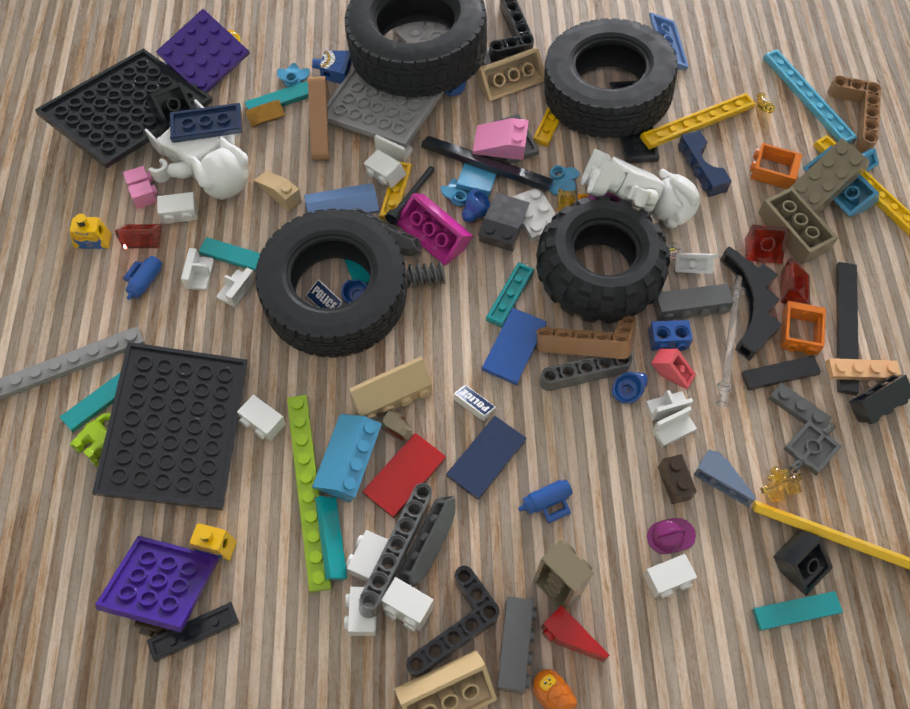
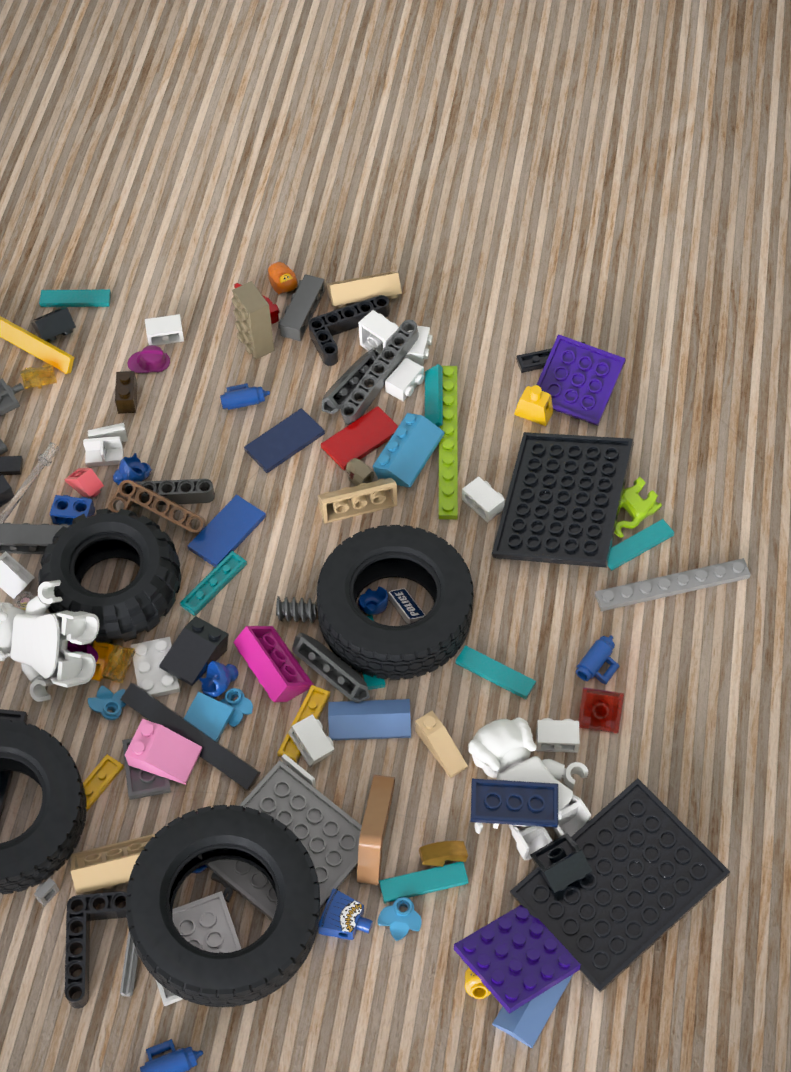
camera: 165 degrees left, 5 degrees down
(89, 233) = (656, 714): yellow torso -> none
(140, 187) = (602, 777): bright pink piece -> none
(196, 271) = (537, 659): white panel -> none
(236, 286) = (497, 635): white panel -> none
(394, 215) = (314, 679): black piece -> none
(474, 402) = (282, 485): slope -> none
(721, 475) = (89, 393): sand blue slope -> none

